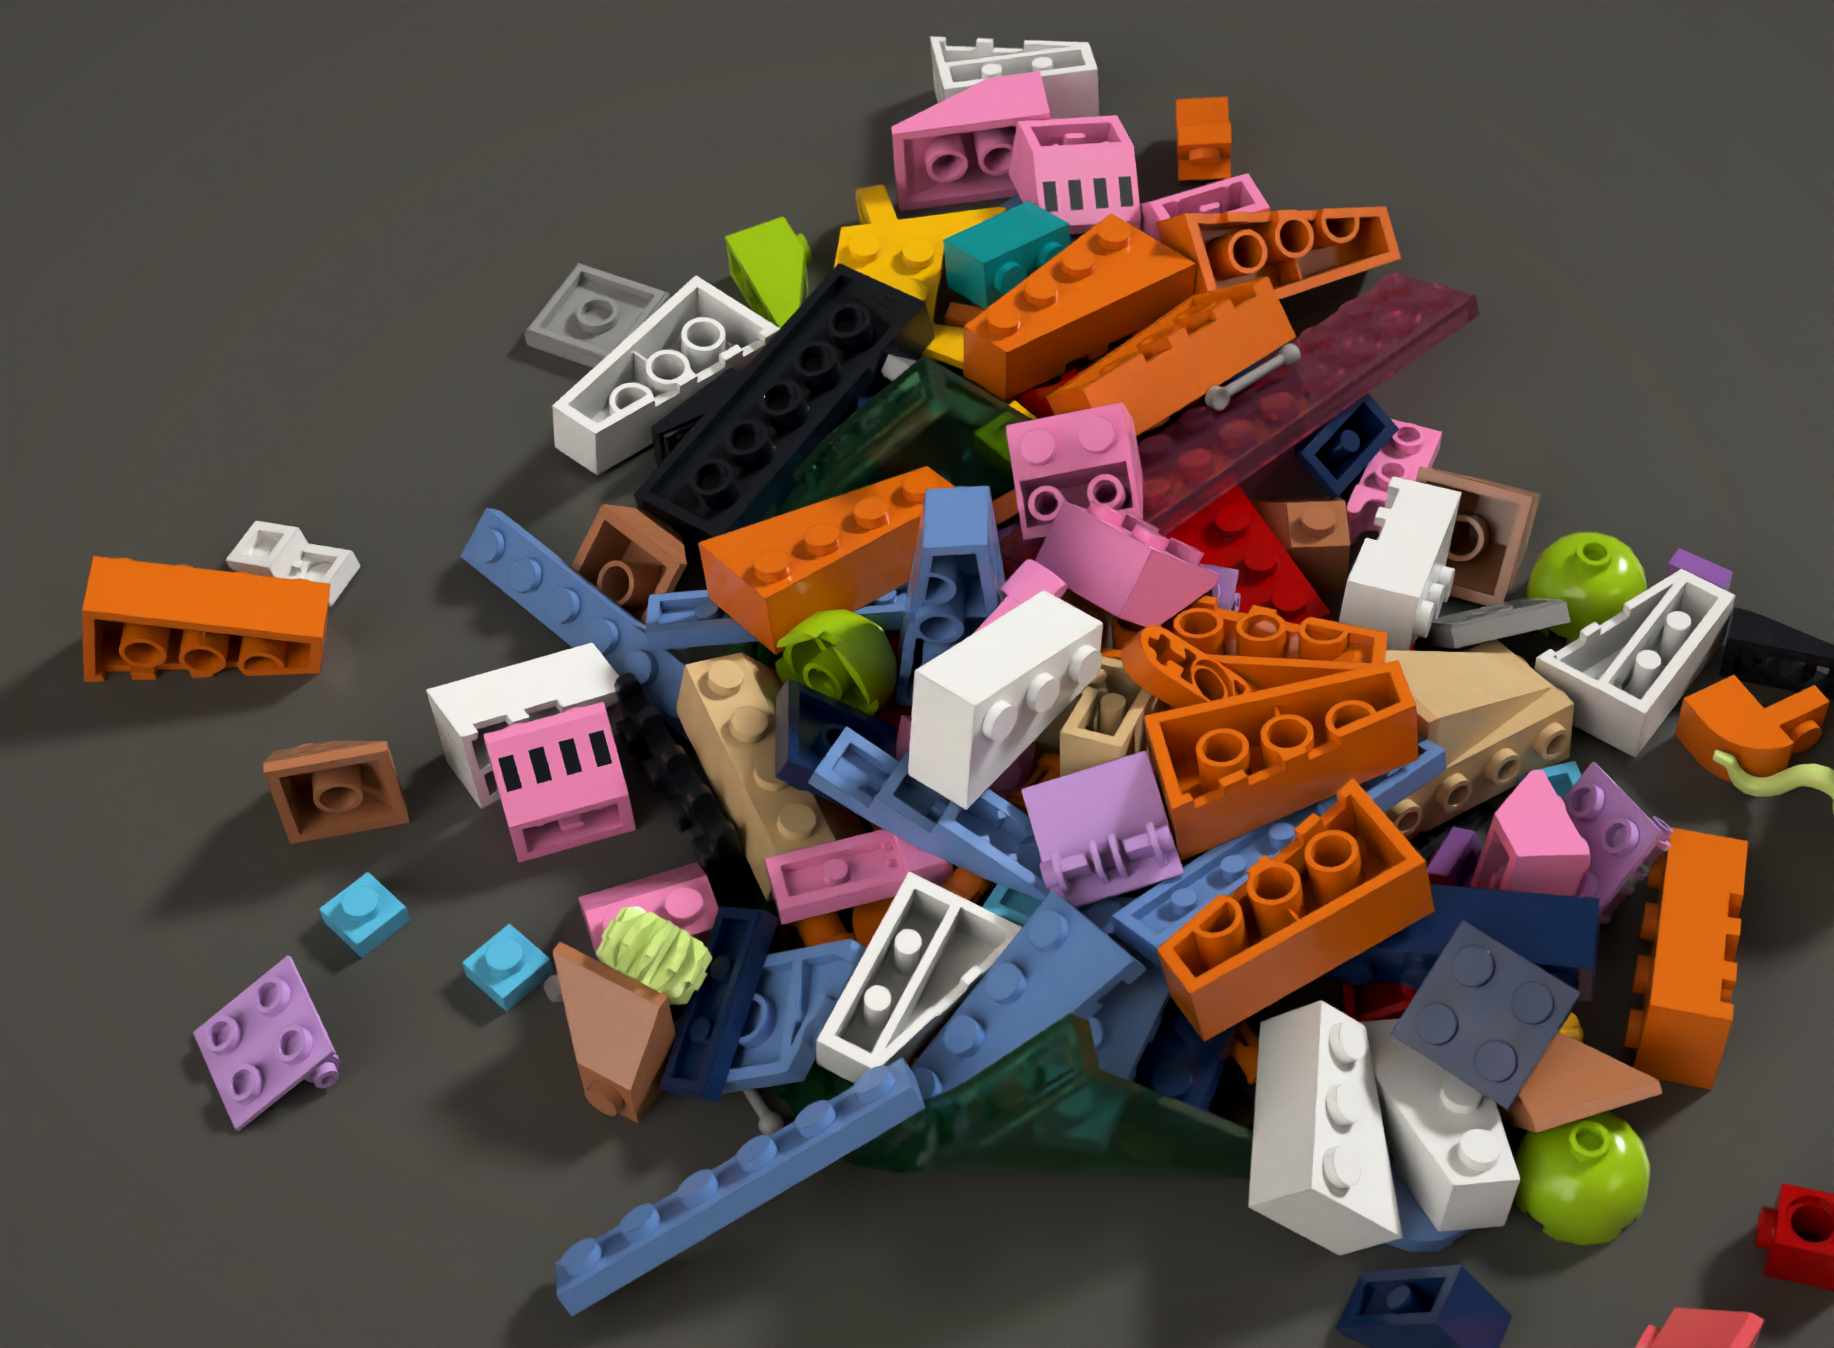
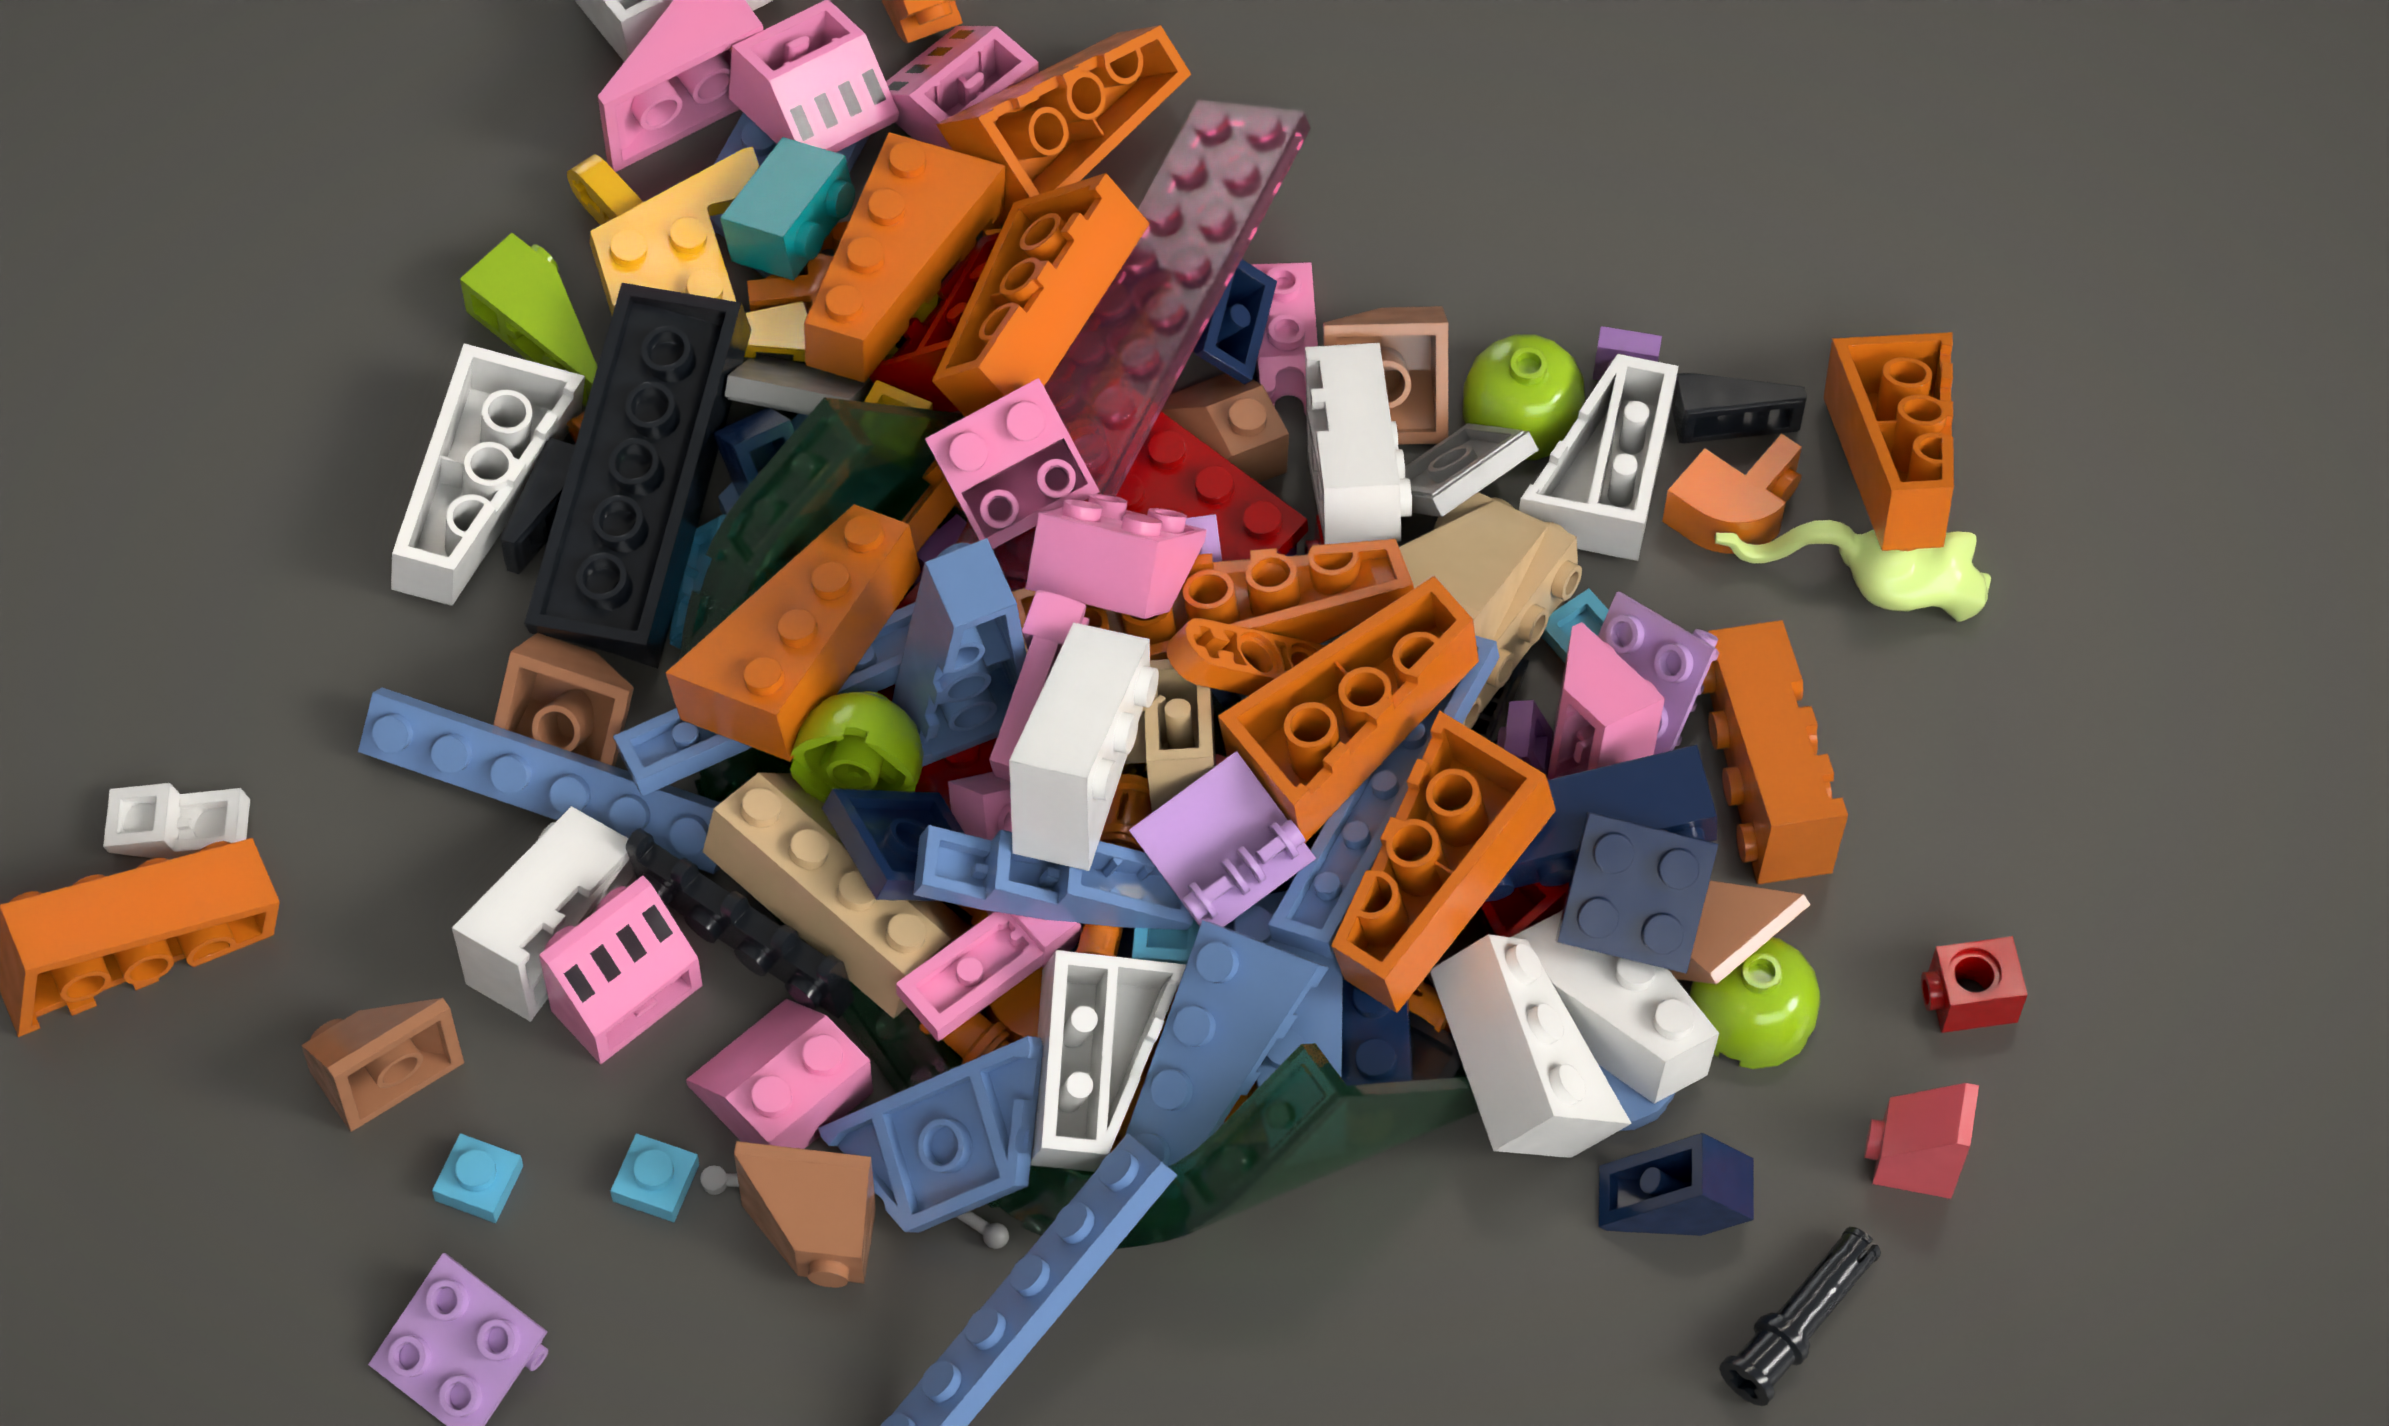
camera: 30 degrees left, 10 degrees up
(592, 315) = (351, 417): light grey tile -> none
(655, 953) = (832, 1118): yellowish green gear -> none
(720, 1006) = (905, 1140): dark blue tile -> none
(1219, 397) = (1101, 317): light grey hinge -> none

